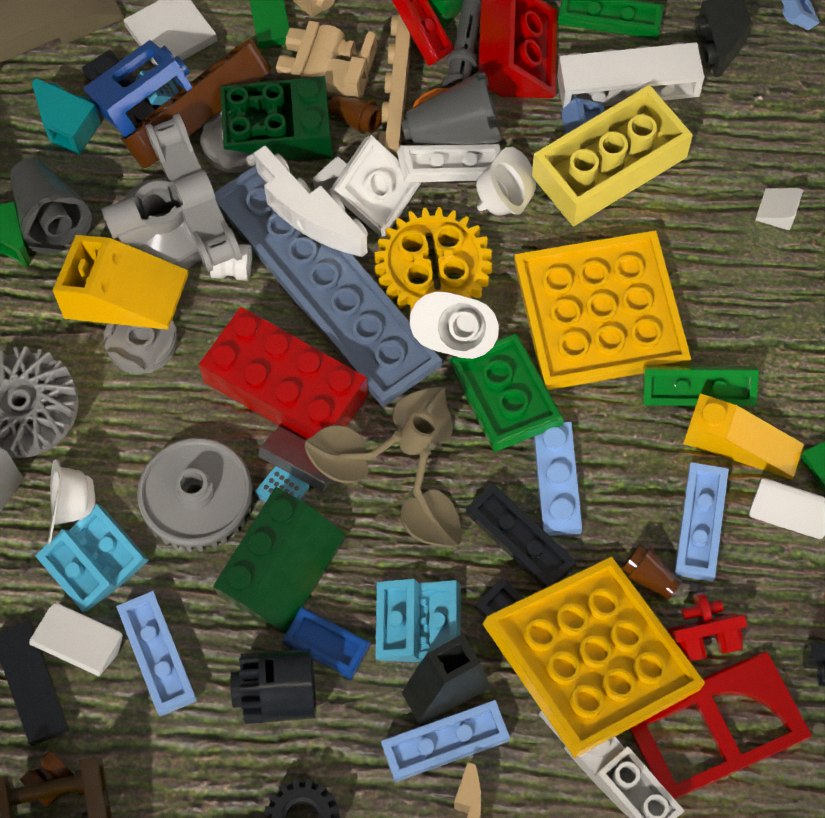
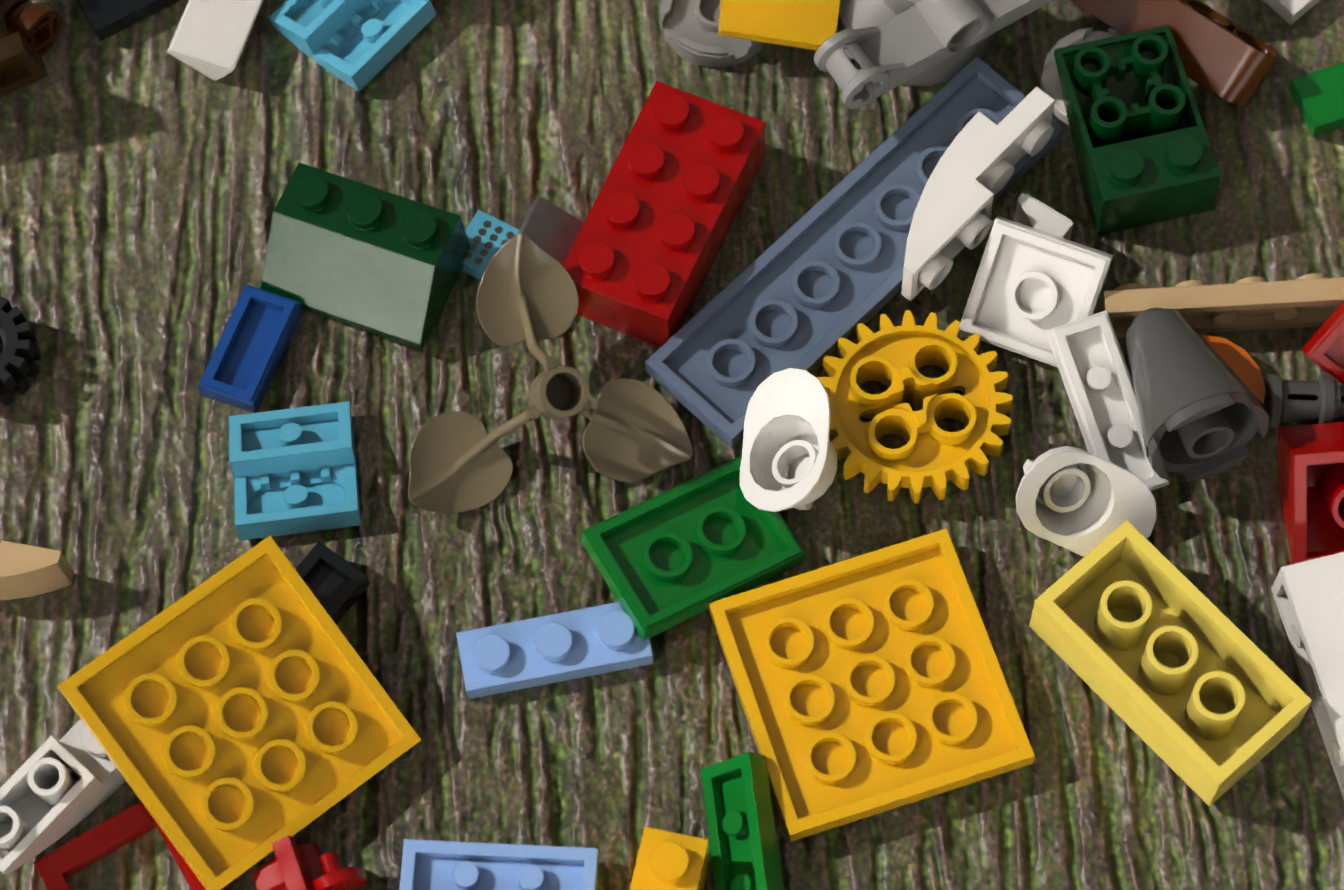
camera: 85 degrees right, 0 degrees up
(156, 653) = (211, 122): light blue plate -> none
(201, 516) = (464, 129): light grey wheel -> none
(239, 269) = (865, 125): white wheel -> none
(275, 686) = (163, 281): black gear -> none
(321, 55) = (1275, 169): tan hips -> none
(358, 113) = (1181, 249): reddish brown cone -> none
(445, 680) = (194, 516): pearl dark grey slope -> none
(445, 741) = (106, 530): light blue plate -> none
(520, 537) = (441, 599): black plate -> none
(579, 112) = (1262, 618): medium blue slope -> none
(651, 572) = (401, 804): reddish brown cone -> none

